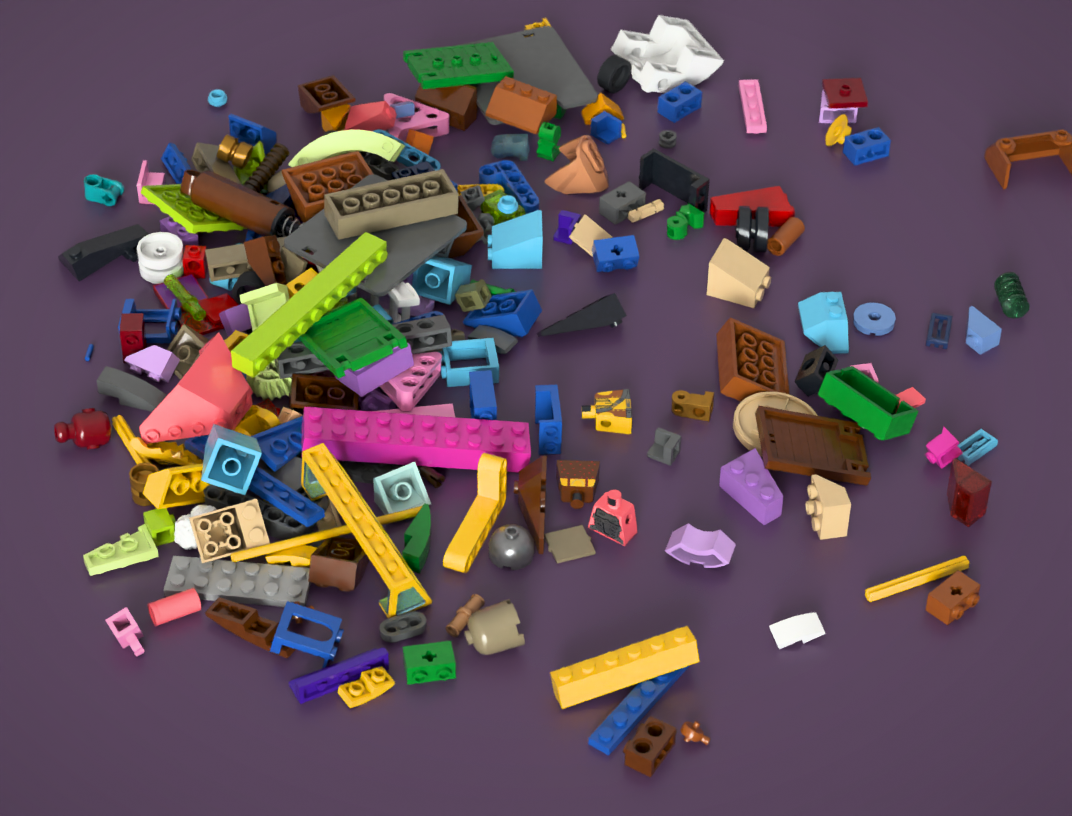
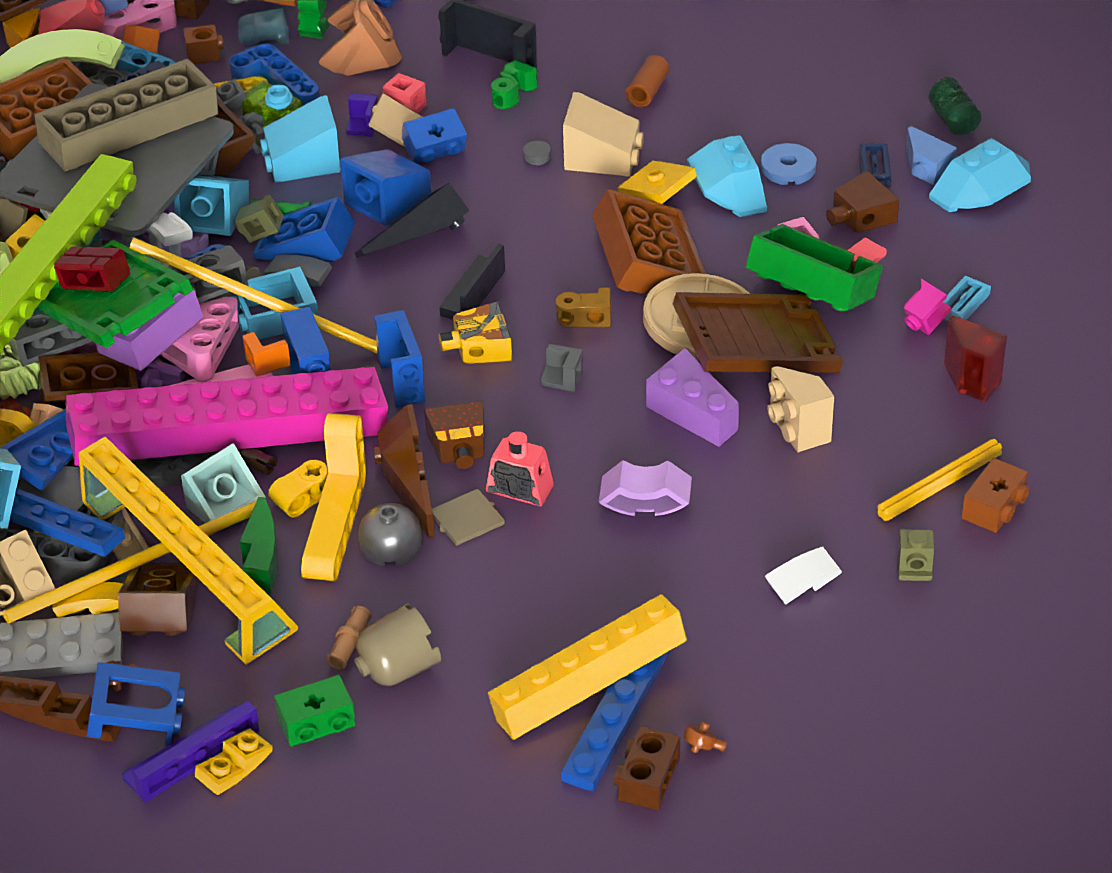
camera: 10 degrees left, 0 degrees up
(341, 317) = (92, 268): none -> dark red brick
(403, 626) = (266, 668): dark grey plate -> none
(450, 353) = (248, 292): none -> yellow piece
(452, 403) = (265, 358): none -> orange panel
(454, 502) = (297, 490): none -> yellow piece
(463, 152) = (203, 44): none -> dark orange brick
(569, 284) = (383, 184): none -> blue slope
(603, 215) = (407, 92): none -> coral brick
(618, 372) = (475, 283): none -> black panel
(620, 201) = (432, 67): dark grey brick -> none
(645, 210) = (458, 79): tan axle -> none
(689, 278) = (537, 152): none -> dark grey tile
(725, 207) = (595, 54): red slope -> none
(751, 228) = (605, 75): black wheel -> none
(771, 316) = (658, 181): none -> yellow plate
(814, 370) = (733, 238): black brick -> none
(881, 630) = (915, 555): none -> olive brick
(920, 360) = (863, 204): none -> reddish brown torso
(1016, 354) = (980, 177): none -> medium azure wedge

